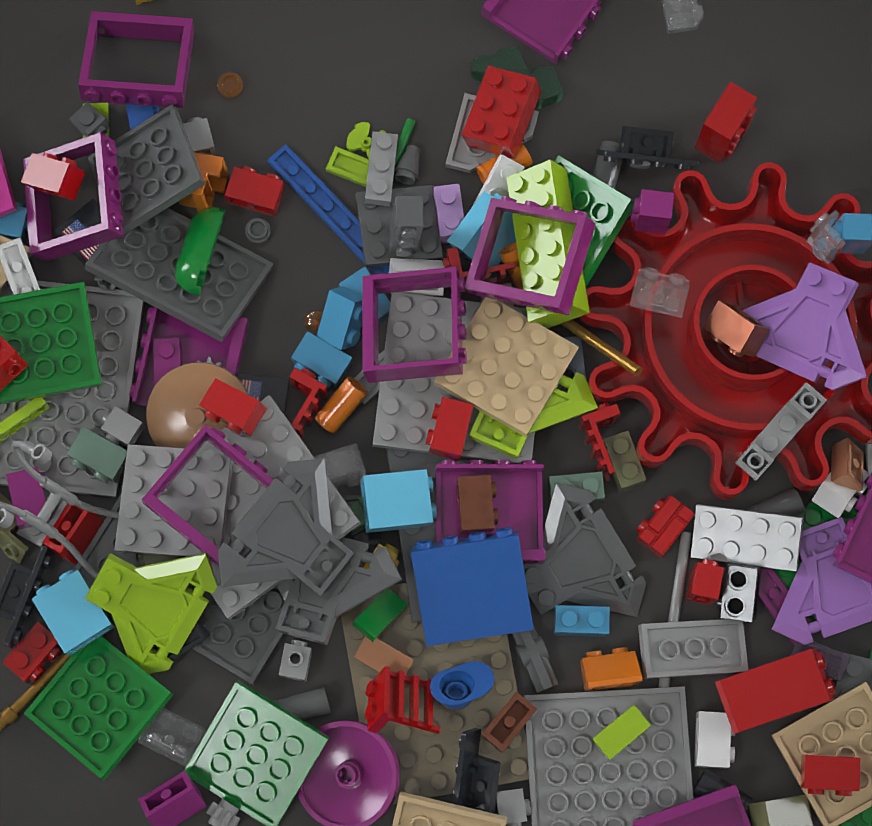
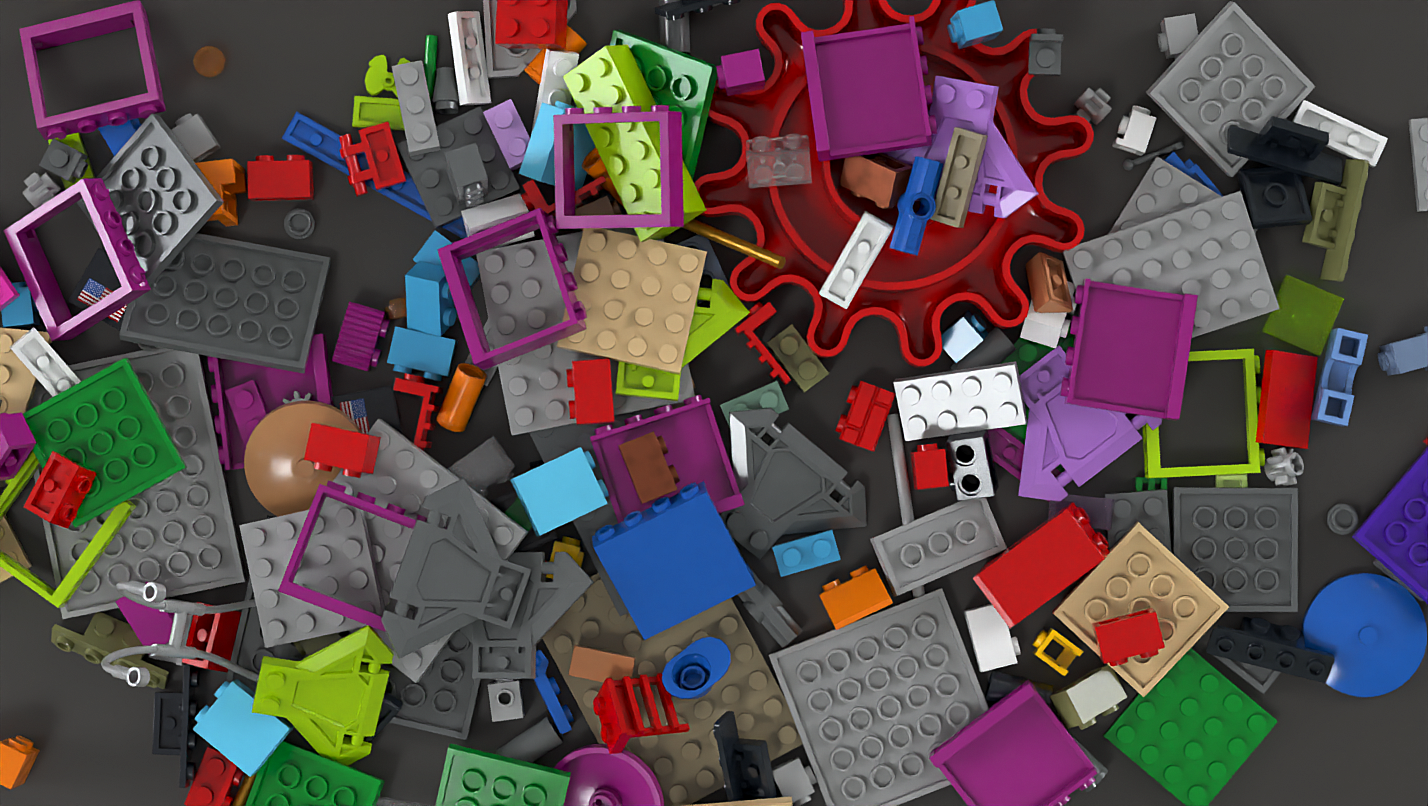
camera: 10 degrees left, 10 degrees up
(53, 176) = (47, 246): brick -> none
(62, 135) = (40, 189): none -> light grey gear
(97, 455) = (209, 544): sand green brick -> none
(121, 427) = (224, 505): light grey brick -> none
(198, 249) = (240, 271): green brick -> none
(276, 333) = (361, 336): none -> magenta brick
(333, 665) = (549, 689): none -> blue hinge
(341, 197) = (381, 156): none -> red plate
(379, 614) = (582, 622): green tile -> none
(436, 145) = (469, 58): none -> white plate
(509, 722) = (761, 693): copper brick -> none
(621, 732) = (887, 662): lime tile -> none
(698, 389) = (856, 260): none -> white tile
(750, 259) = (868, 91): none -> magenta panel
(766, 486) = (963, 335): none -> brick
(772, 346) = (921, 186): none -> blue piece
(776, 772) = (1065, 657): none -> yellow window
(780, 431) = (959, 281): light grey slope -> none
(804, 346) = (959, 177): none -> dark tan plate
(824, 240) = (947, 45): clear bracket -> none

